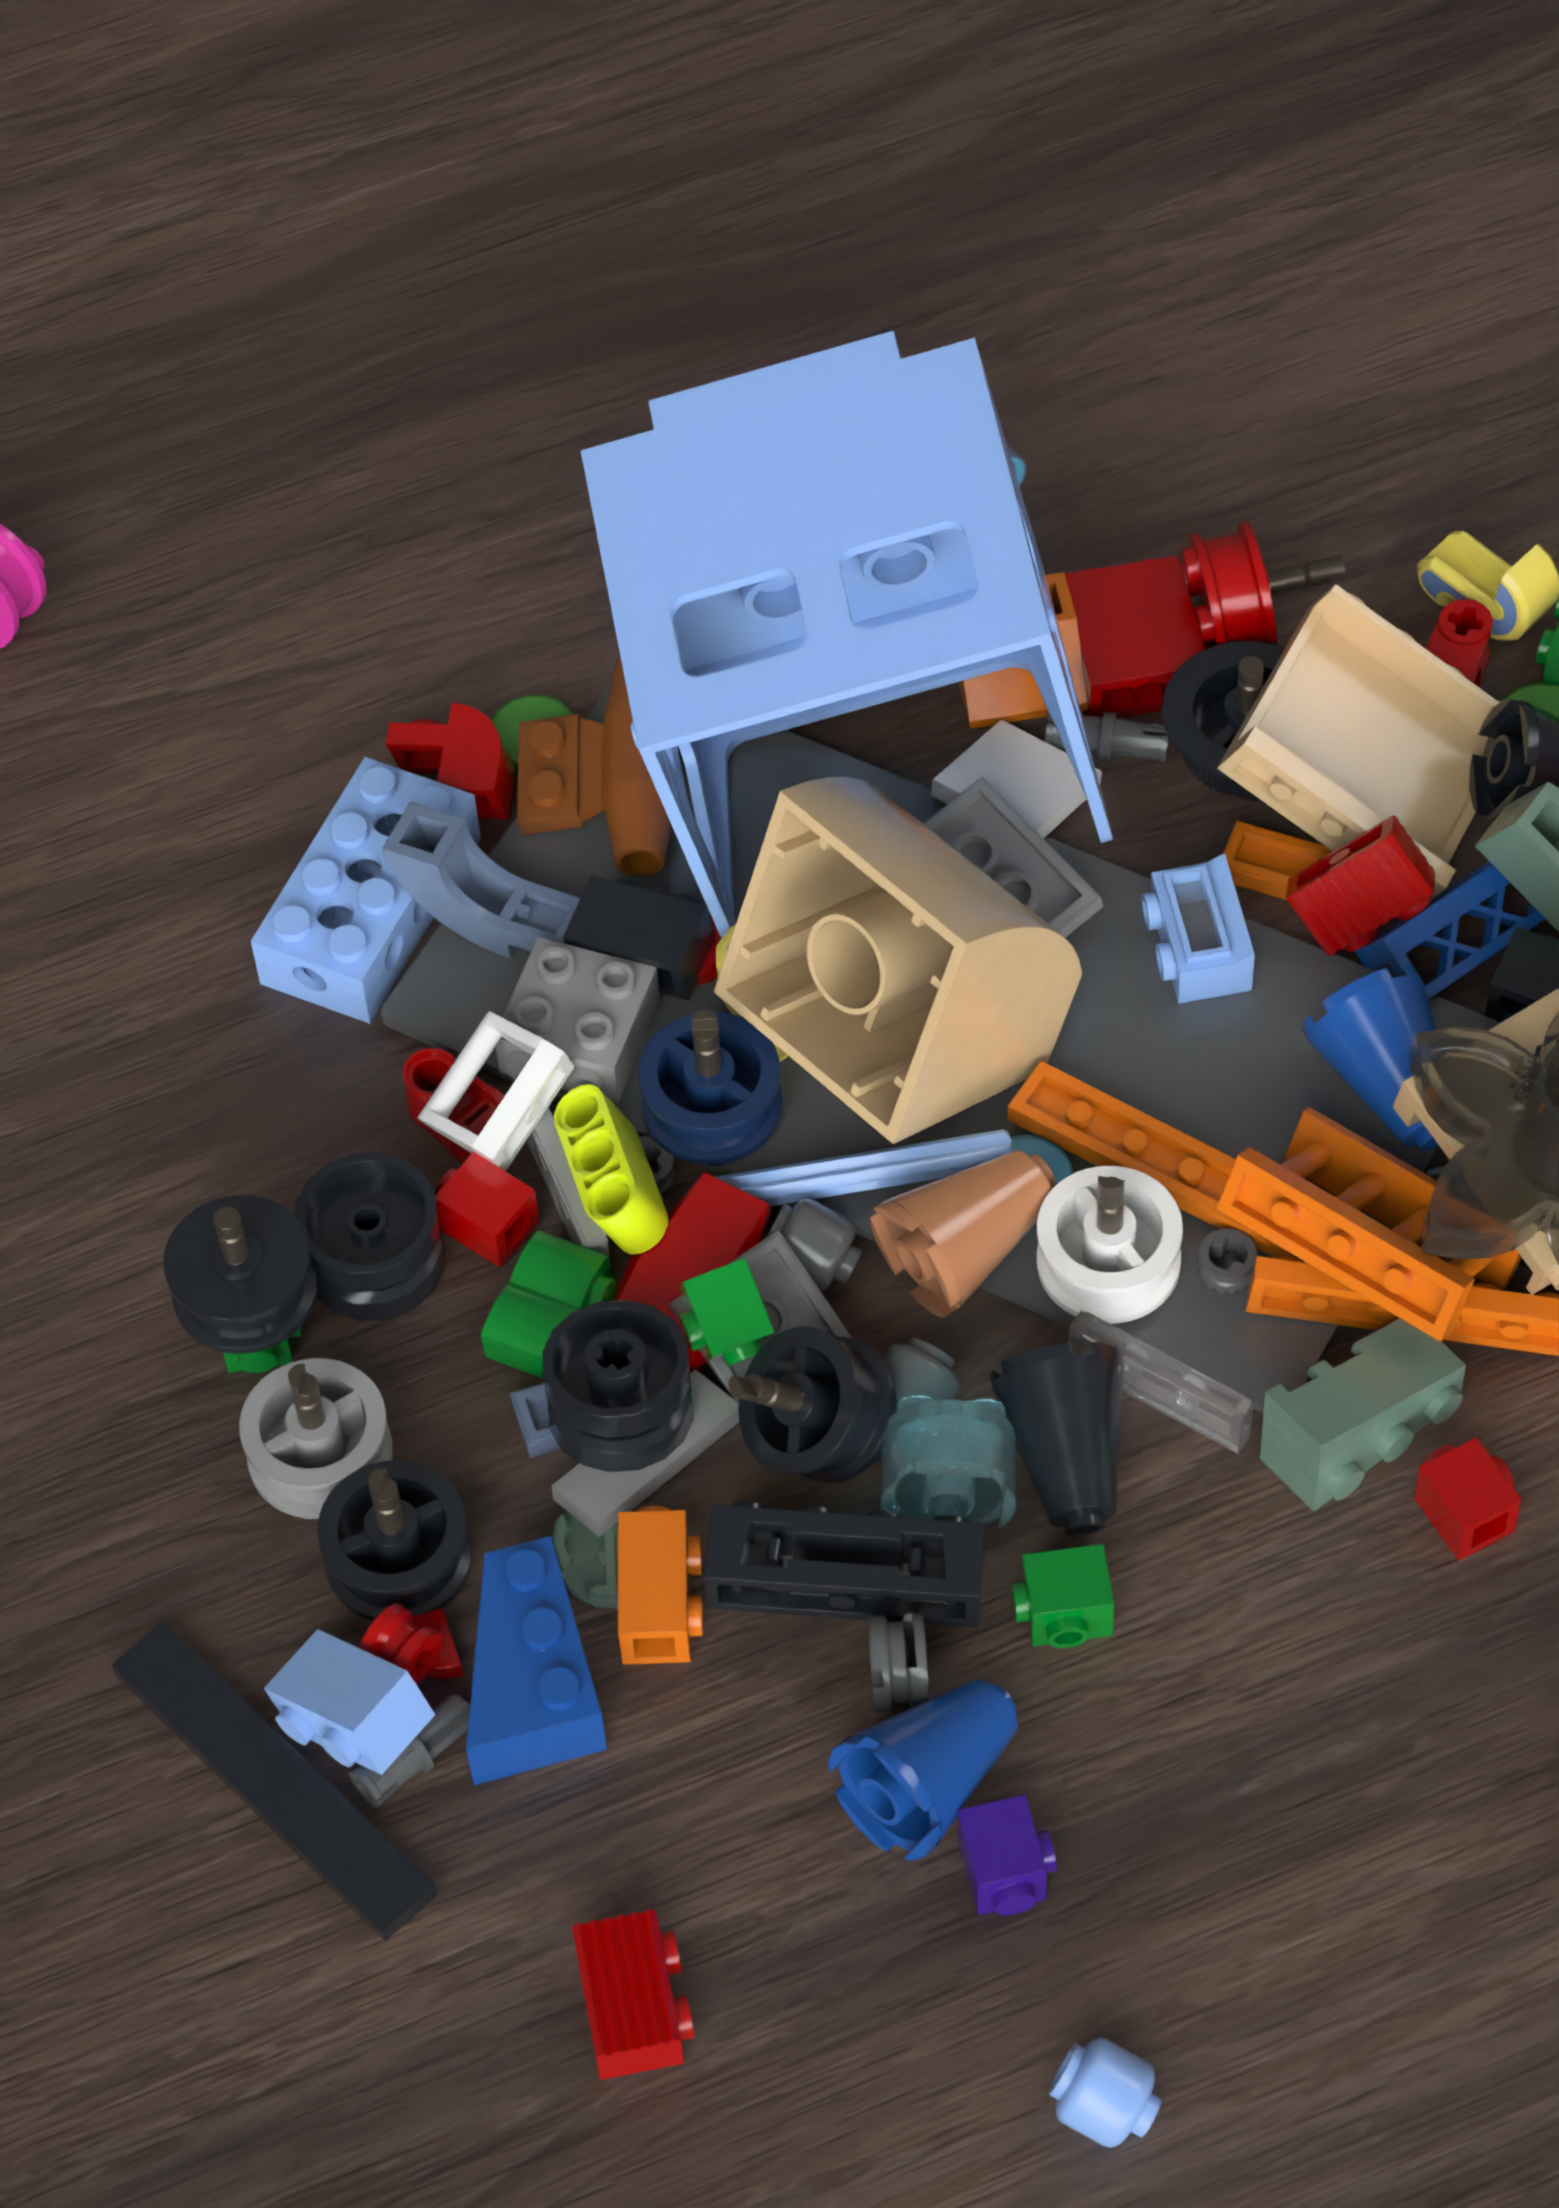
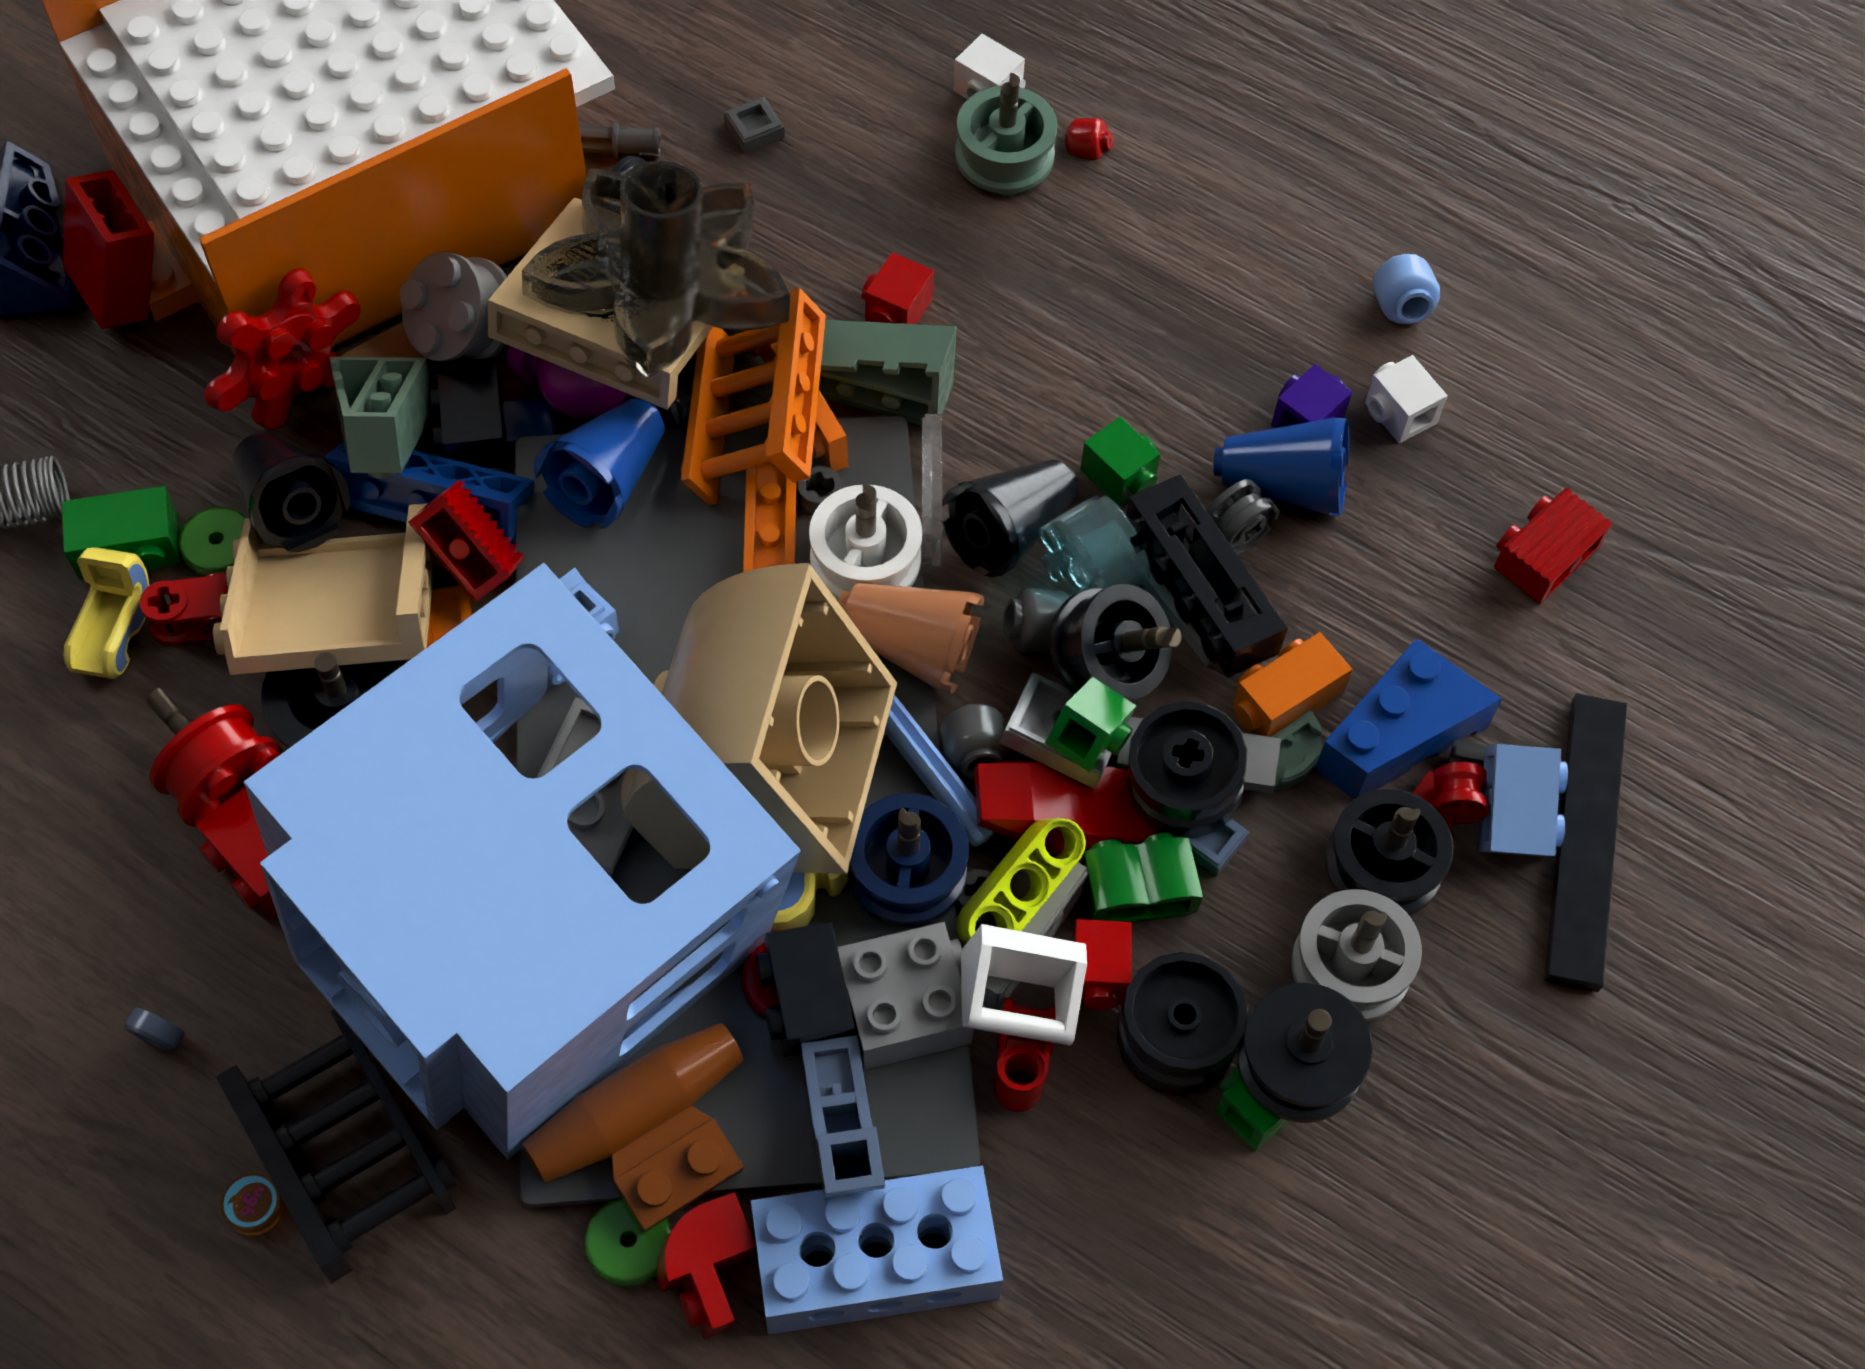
camera: 130 degrees left, 5 degrees up
(945, 1973) = (1405, 398): none -> white brick

